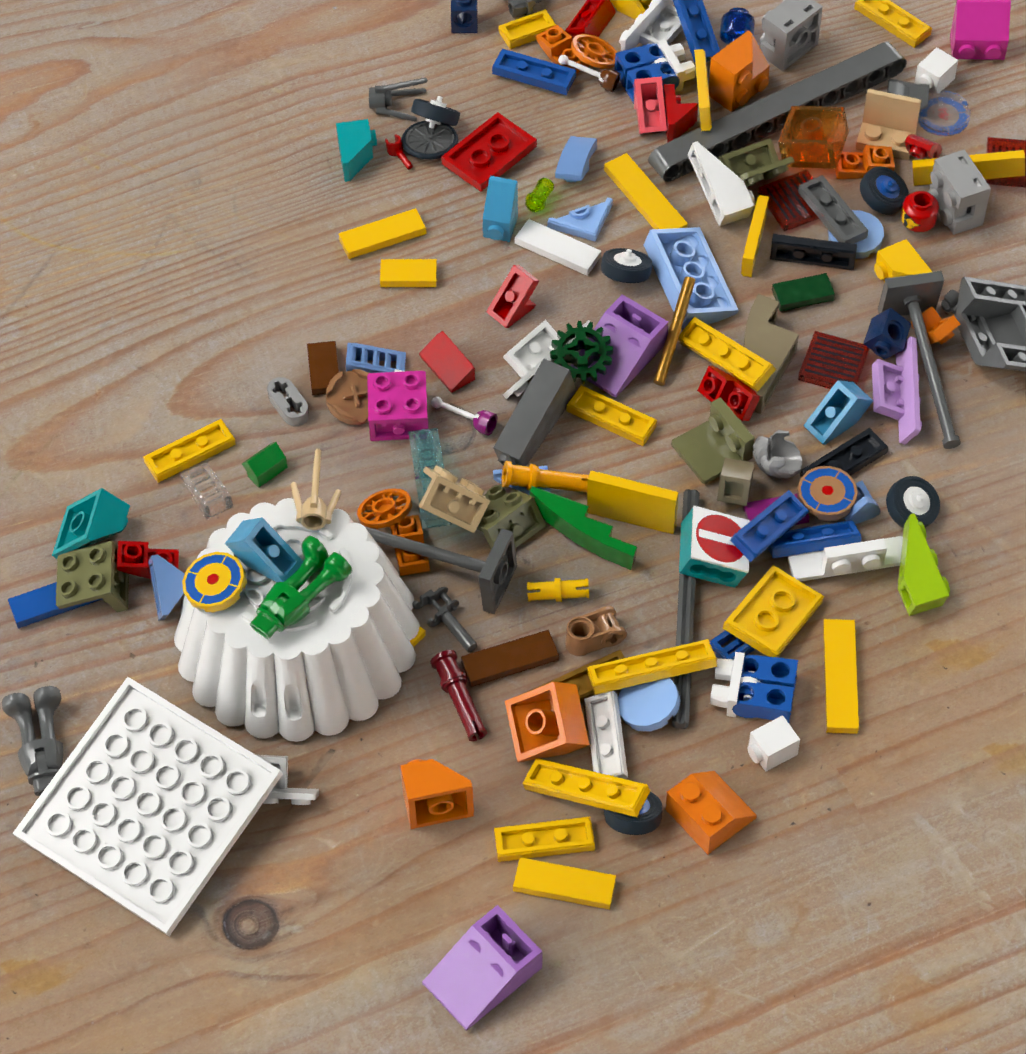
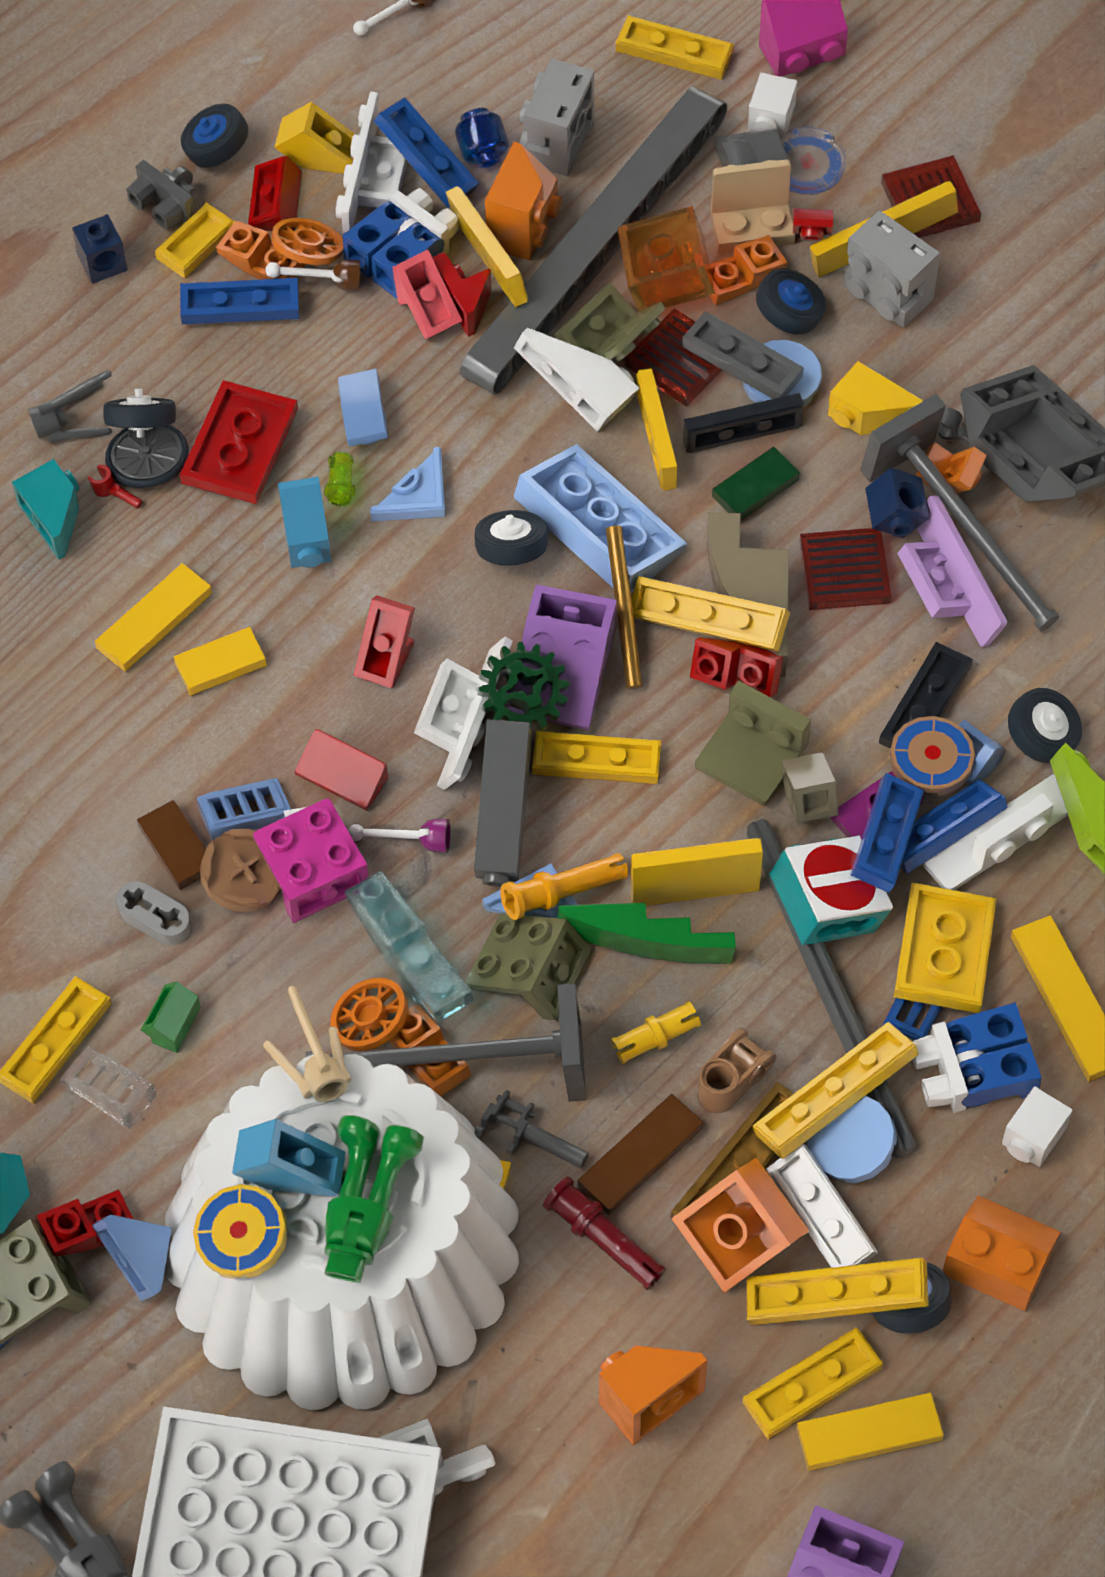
camera: 25 degrees left, 5 degrees up
(454, 500) = (467, 965): tan bracket -> none
(558, 247) = (402, 544): white tile -> none
(643, 193) = (479, 425): yellow tile -> none
(777, 455) = (844, 729): light grey hair -> none
(838, 411) = (887, 636): dark azure slope -> none
(920, 211) = (852, 314): red head -> none

